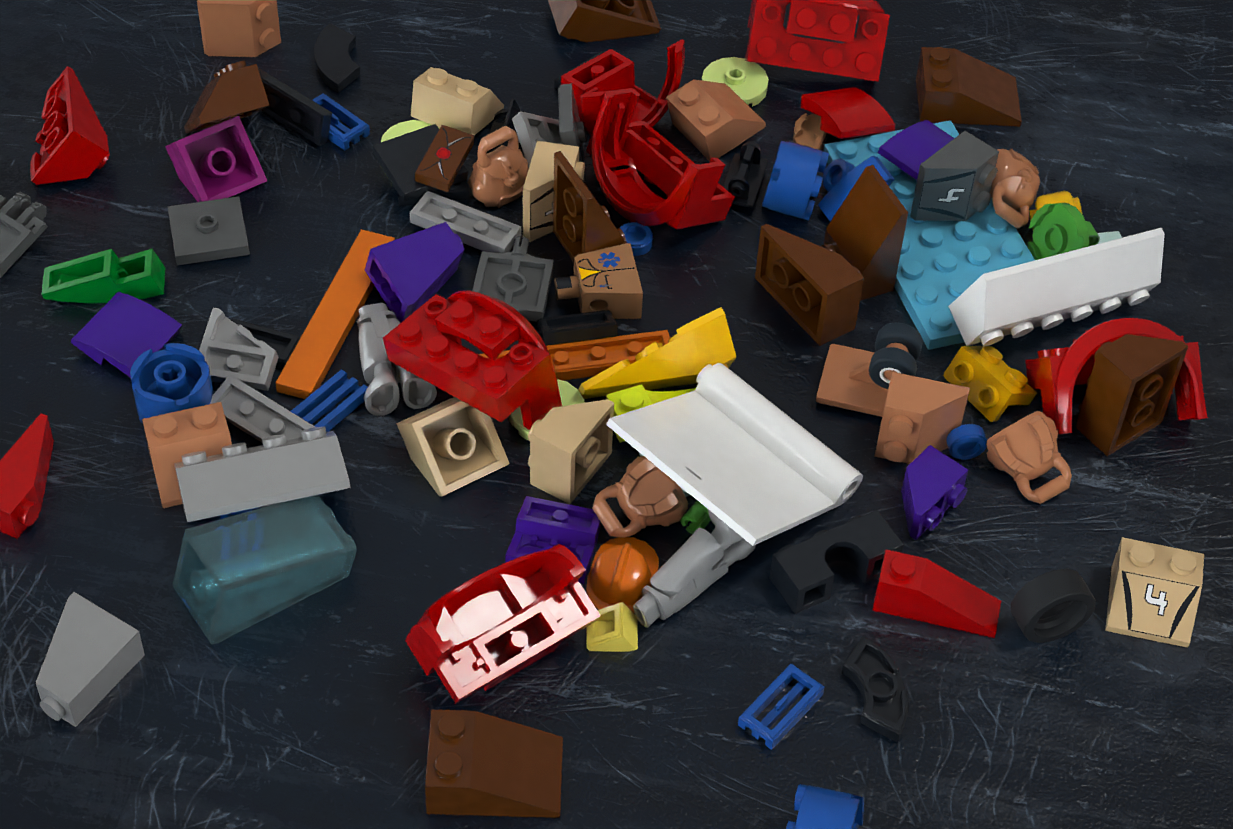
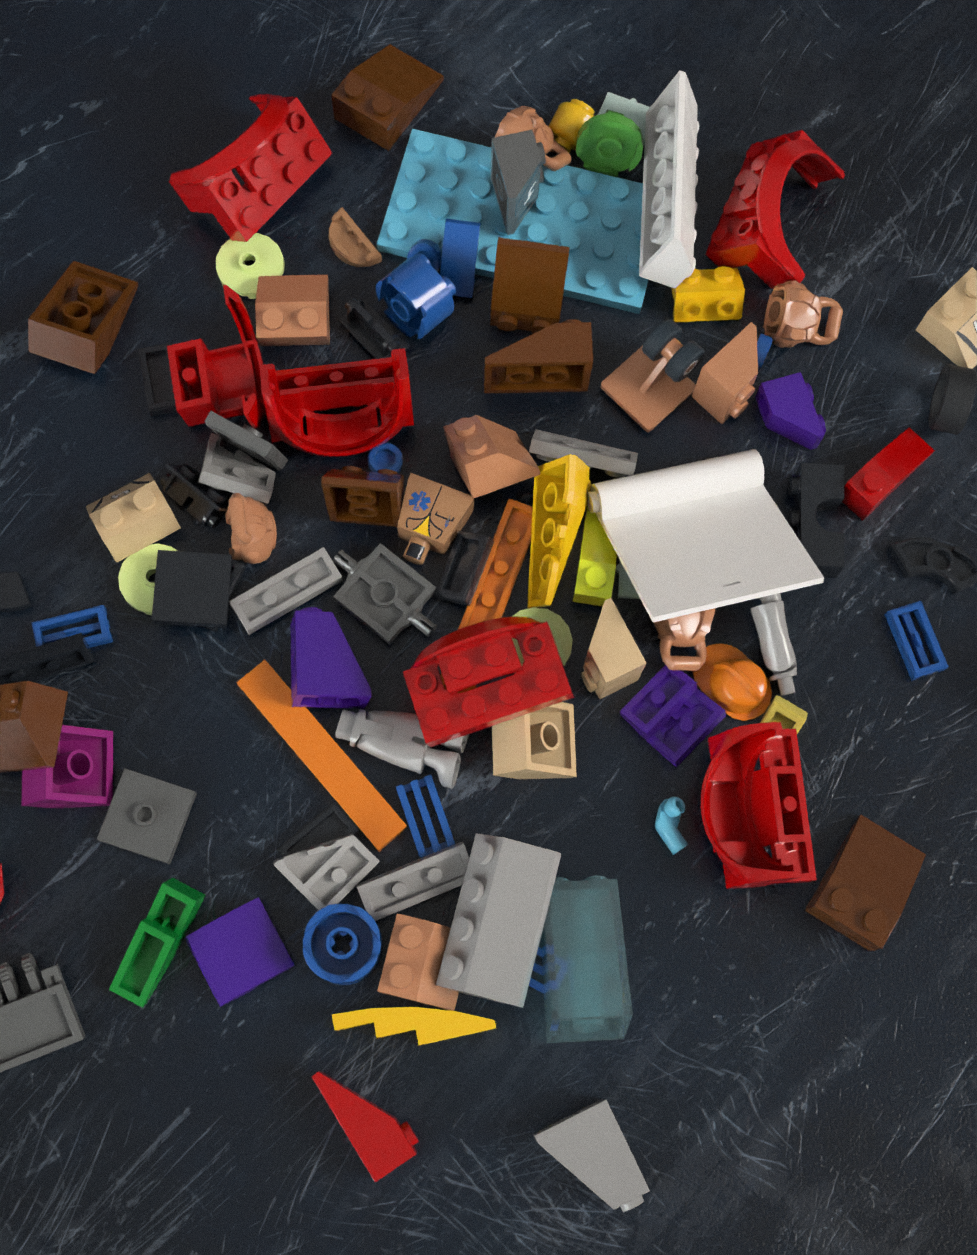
camera: 60 degrees left, 25 degrees up
(131, 473) = (430, 1024): none -> yellow slope
(441, 582) = (668, 821): none -> medium azure arm
(444, 158) = (210, 566): reddish brown tile -> none
(539, 187) = (300, 497): tan slope -> none
(688, 282) = (488, 455): none -> nougat slope
(753, 360) = (613, 460): none -> light grey plate
(848, 112) = (356, 201): red slope -> none
(914, 146) = (455, 175): dark purple slope -> none
(1129, 389) = (811, 207): reddish brown slope -> none

